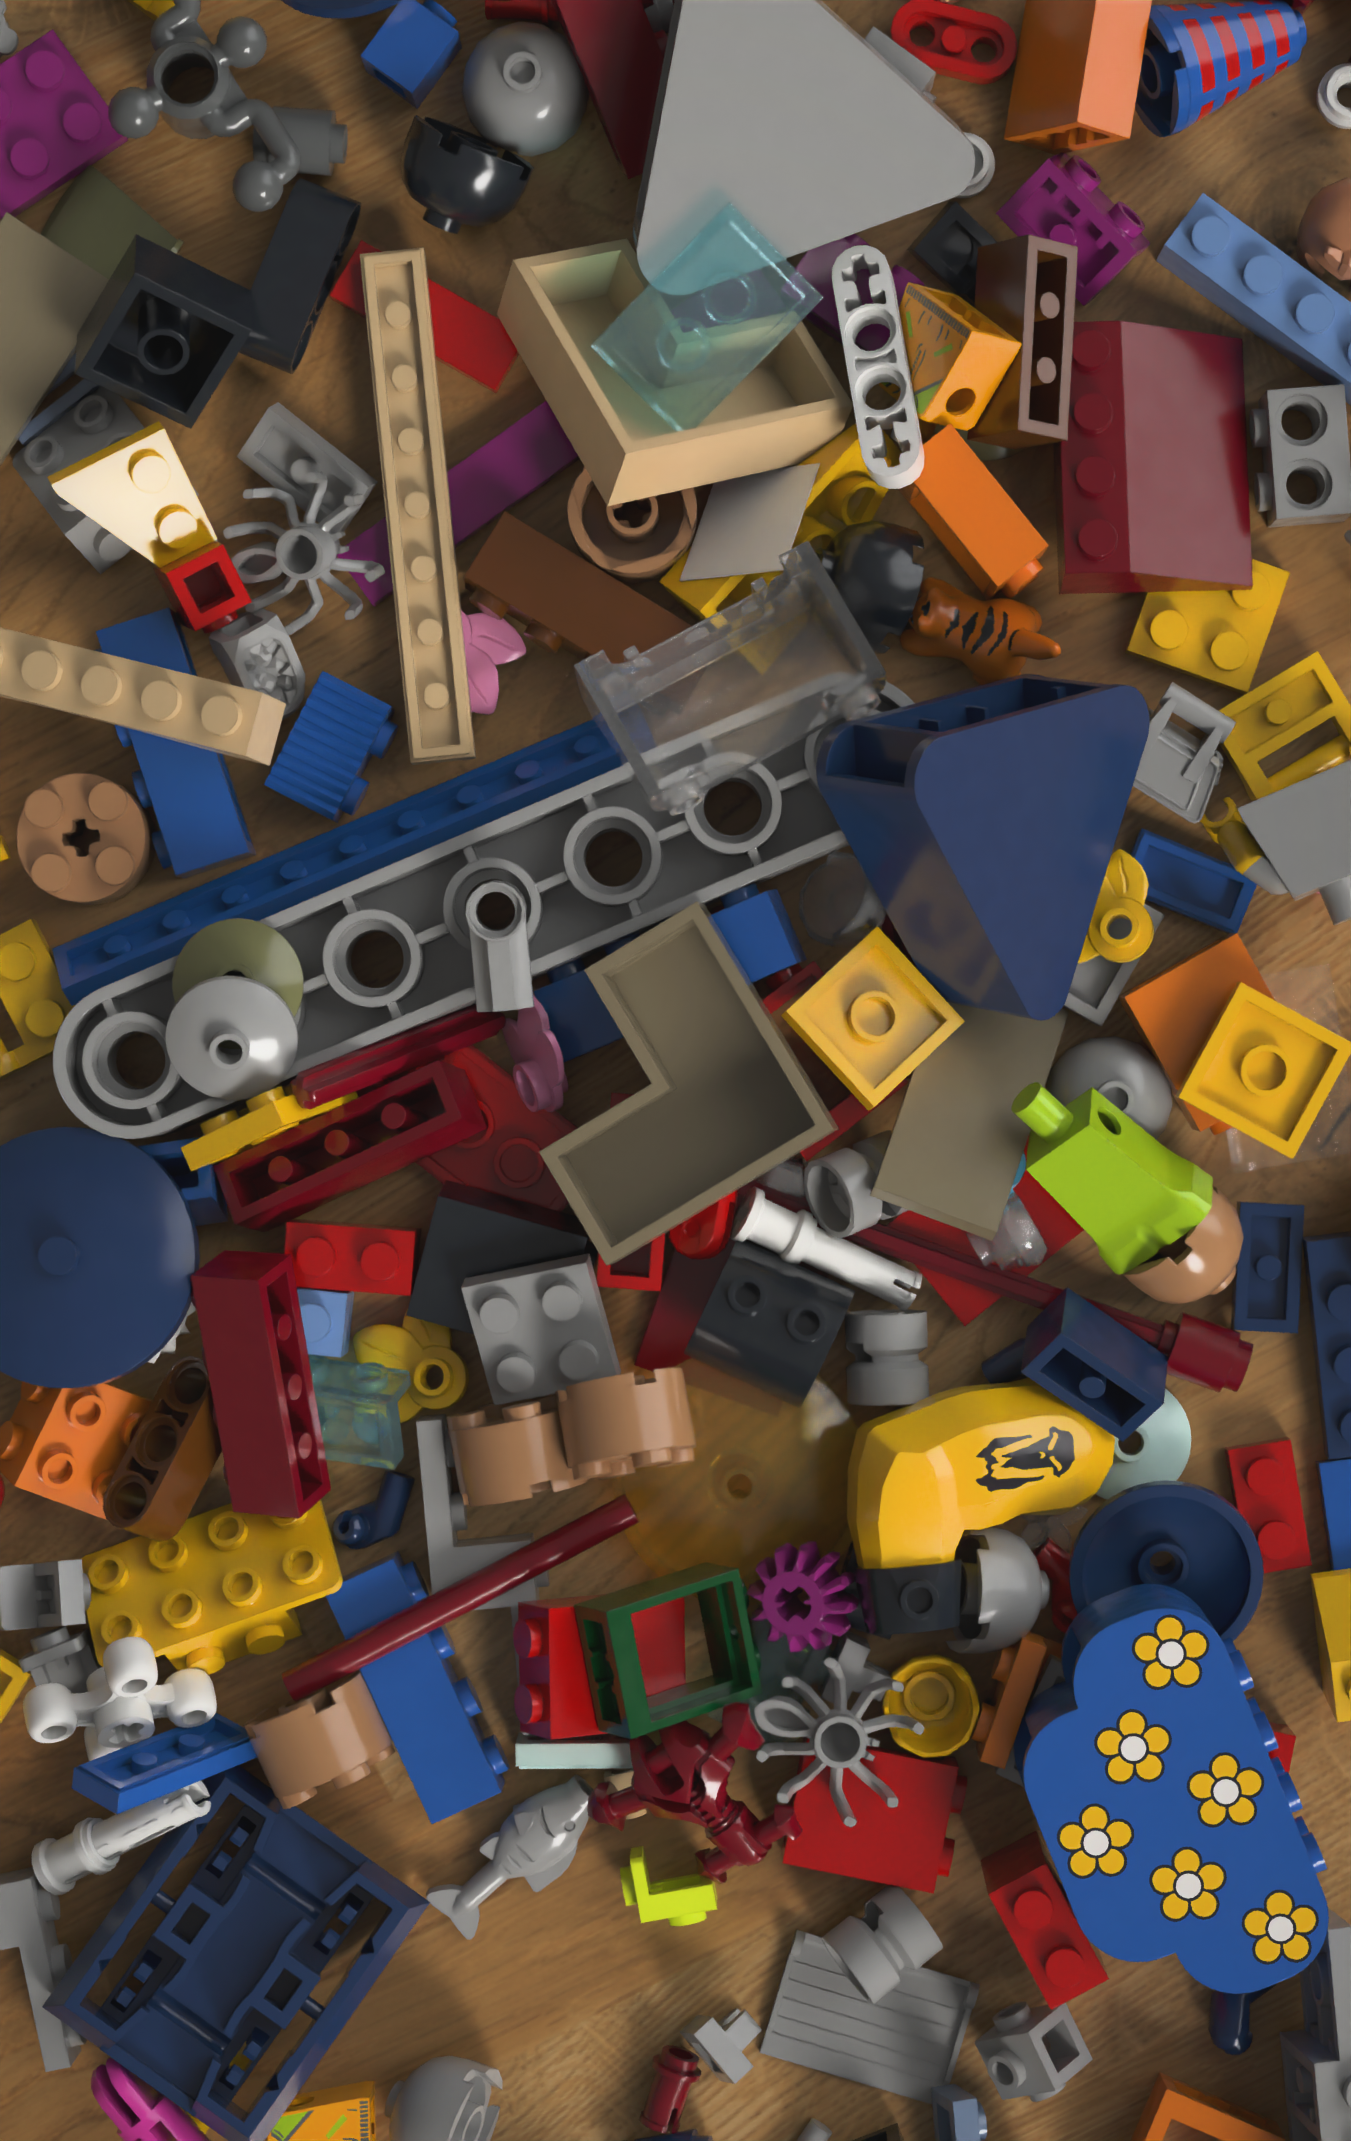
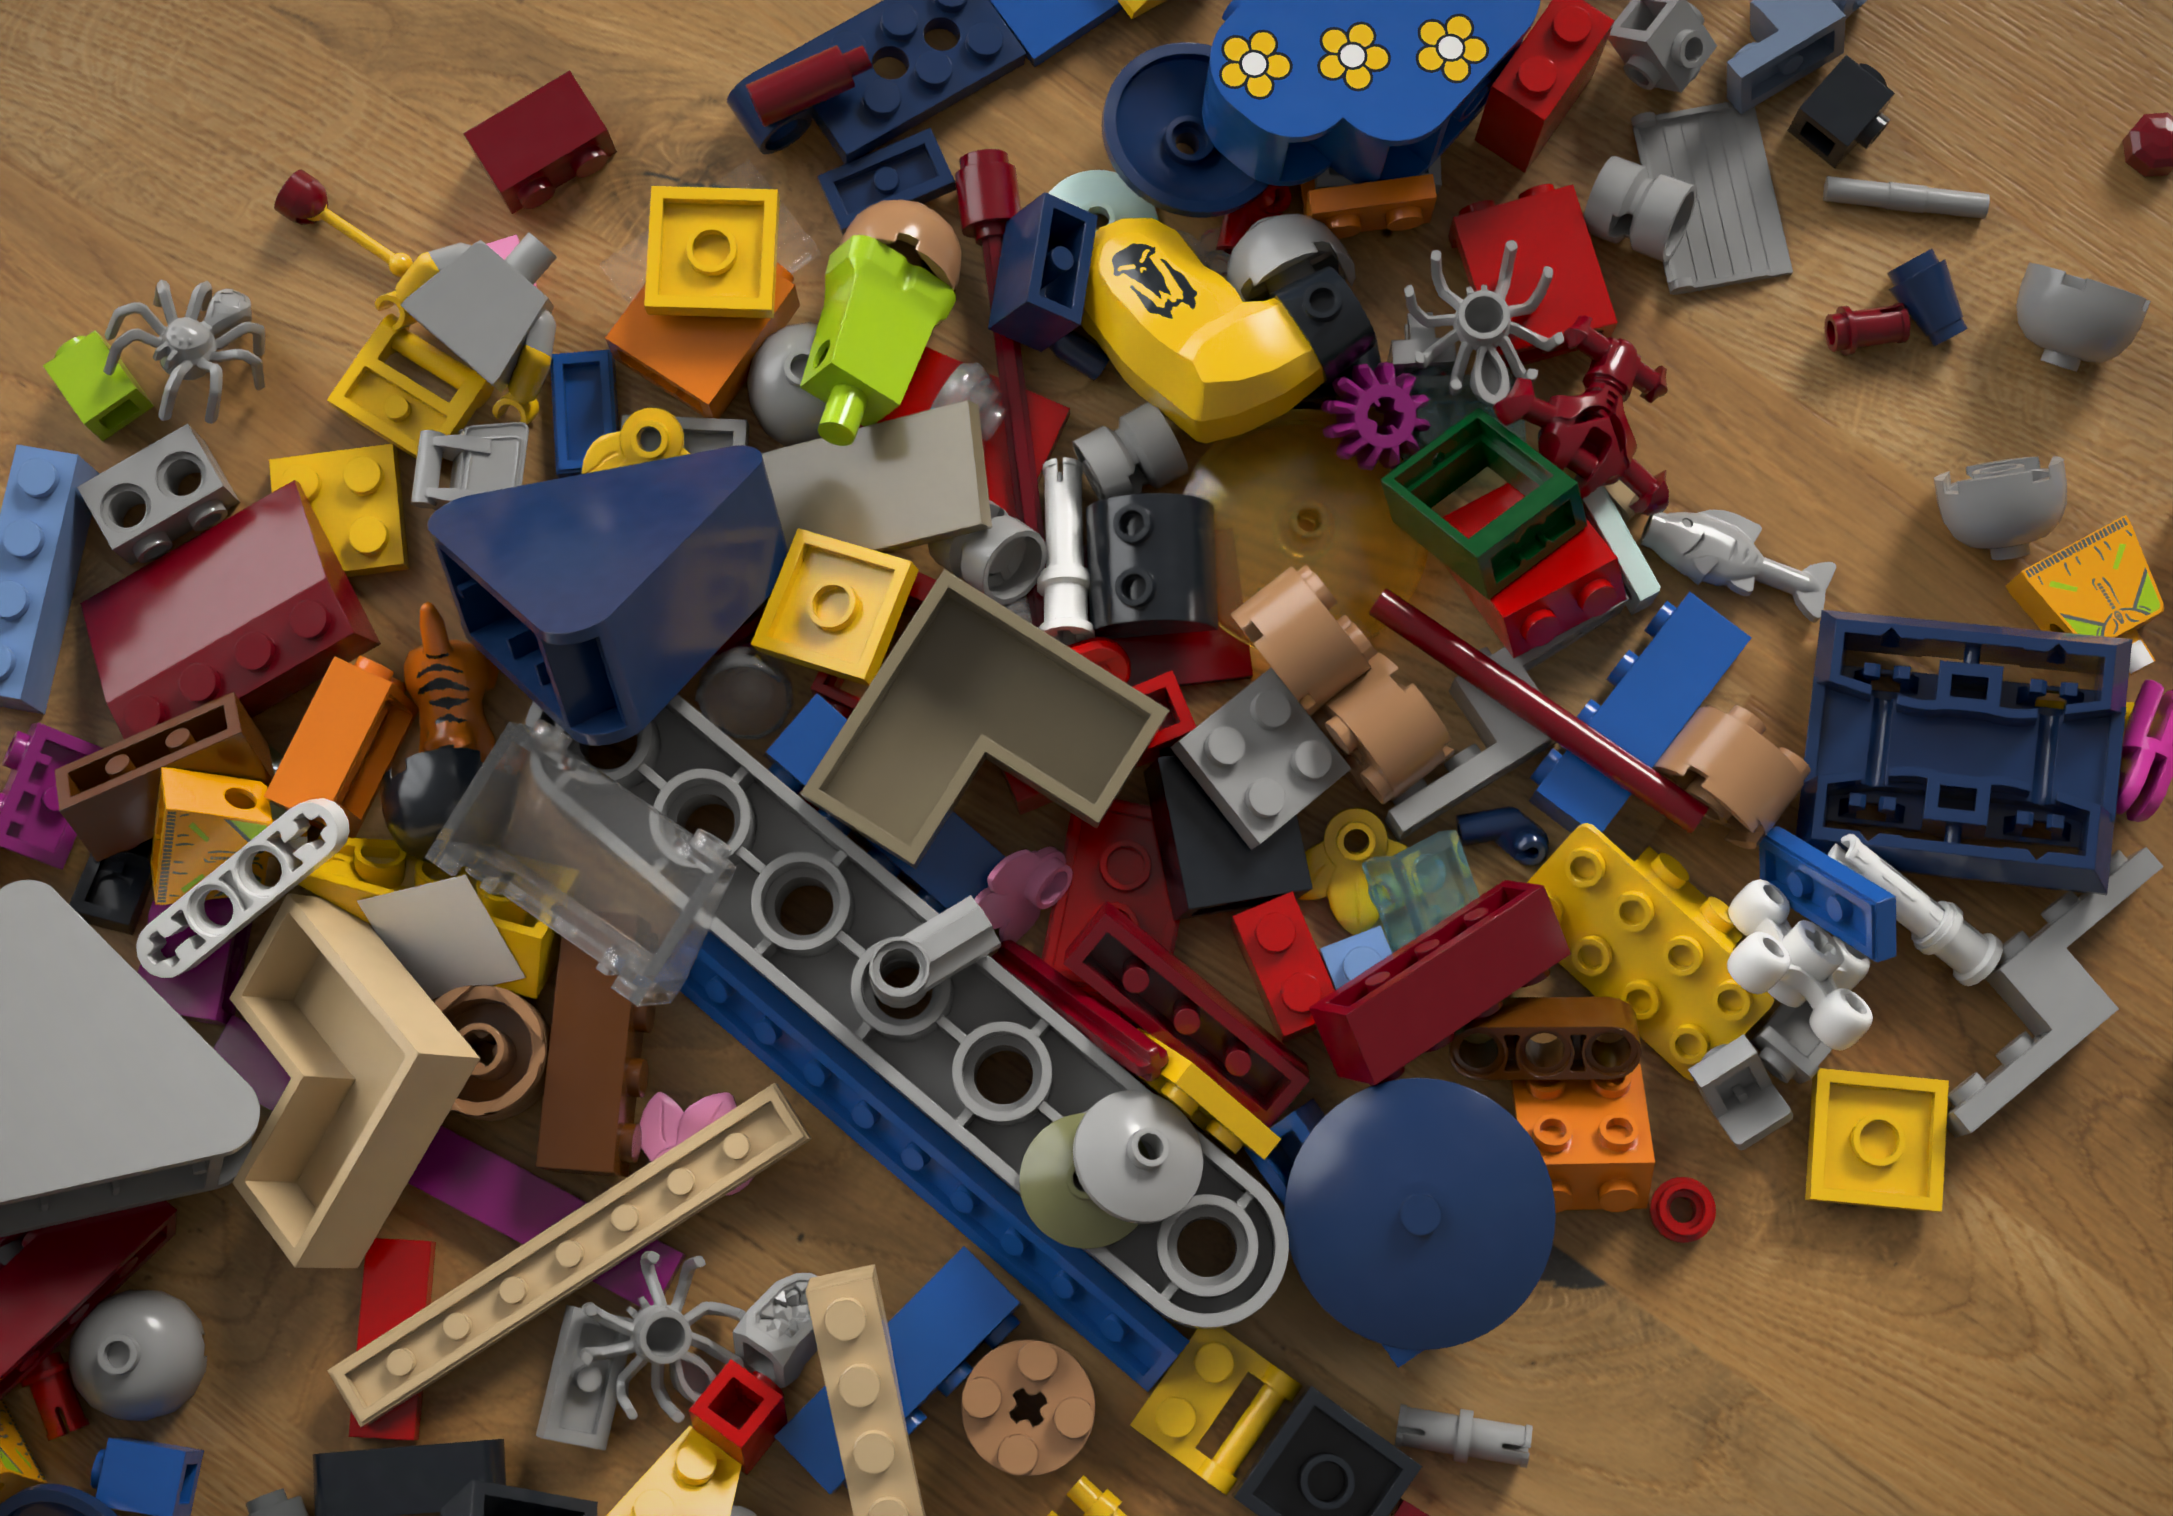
camera: 110 degrees left, 10 degrees down
(332, 748) = (833, 1222): blue brick -> none
(460, 175) = (245, 1368): black cylinder -> none
(678, 1898) = (1701, 404): neon yellow bracket -> none
(706, 320) = (267, 1056): clear light blue tile -> none
(722, 2043) = (1801, 300): light grey tile -> none
(939, 1698) = (1404, 259): yellow hair -> none
(1270, 1501) = (1076, 93): red plate -> none

